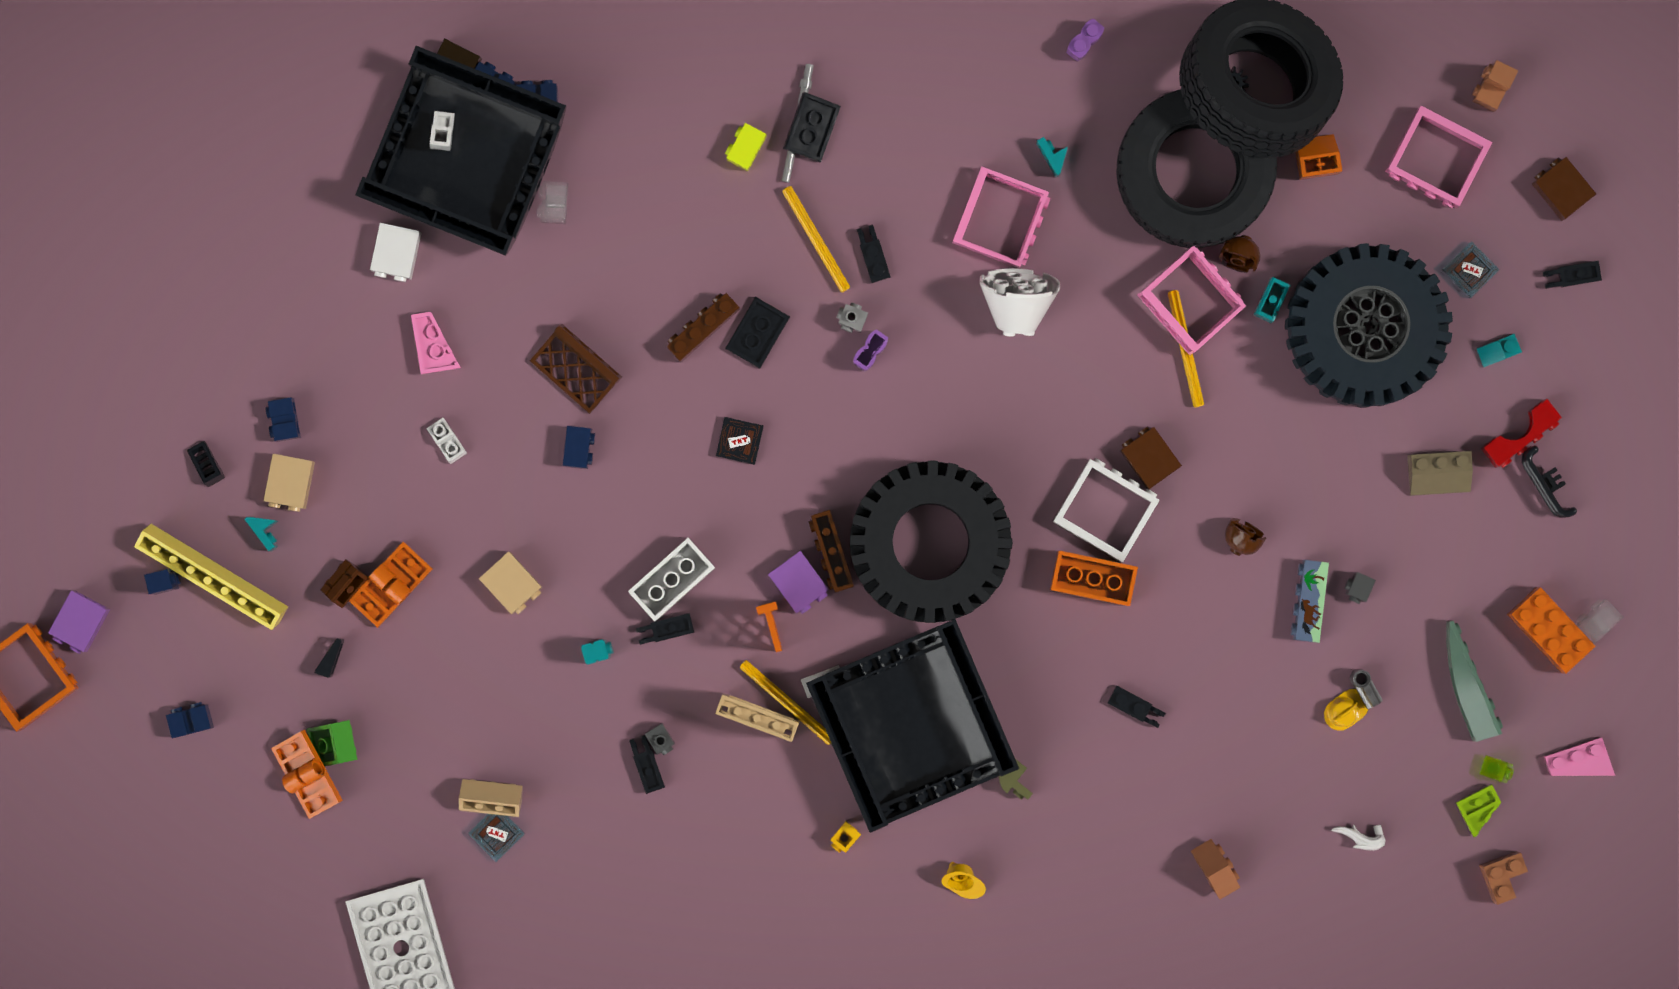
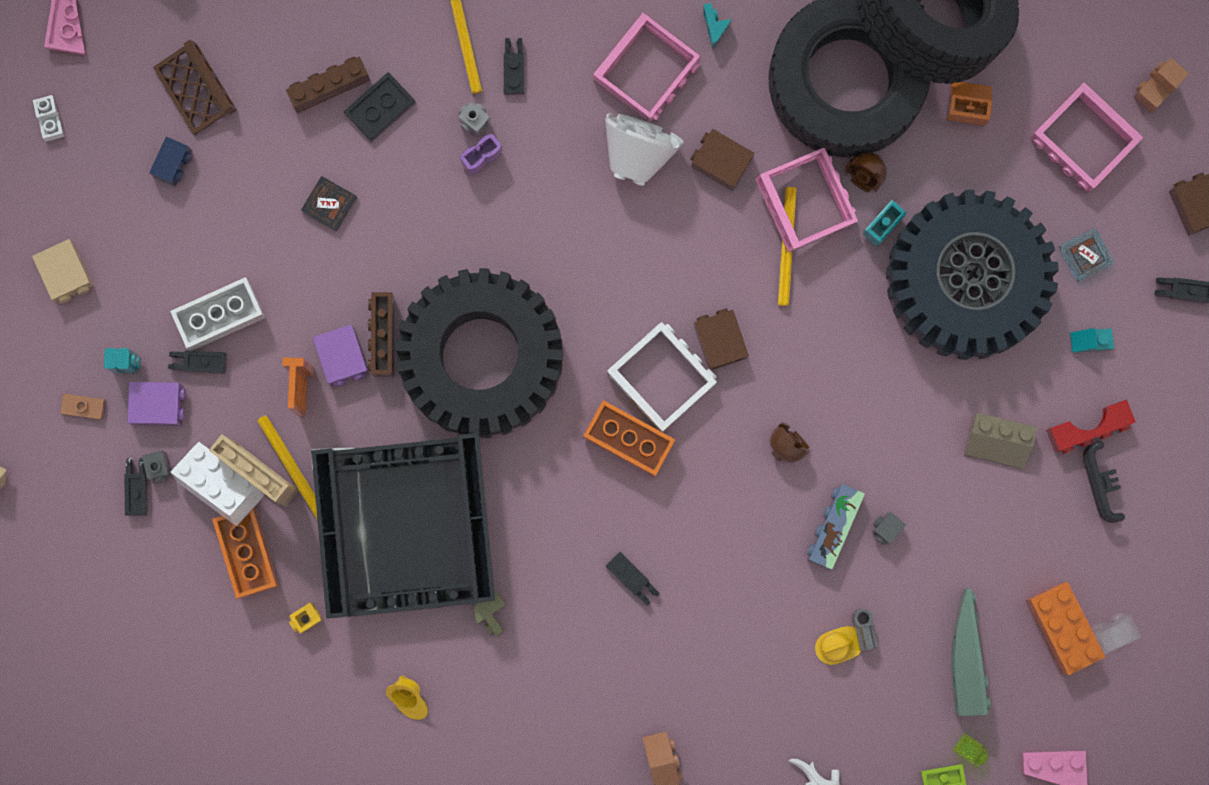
camera: 20 degrees right, 5 degrees down
(571, 704) = (82, 406): none -> nougat plate
(640, 681) = (156, 403): none -> medium lavender brick
(724, 739) = (216, 484): none -> white brick
(770, 794) = (246, 555): none -> orange brick
(1099, 284) = (721, 159): none -> reddish brown brick

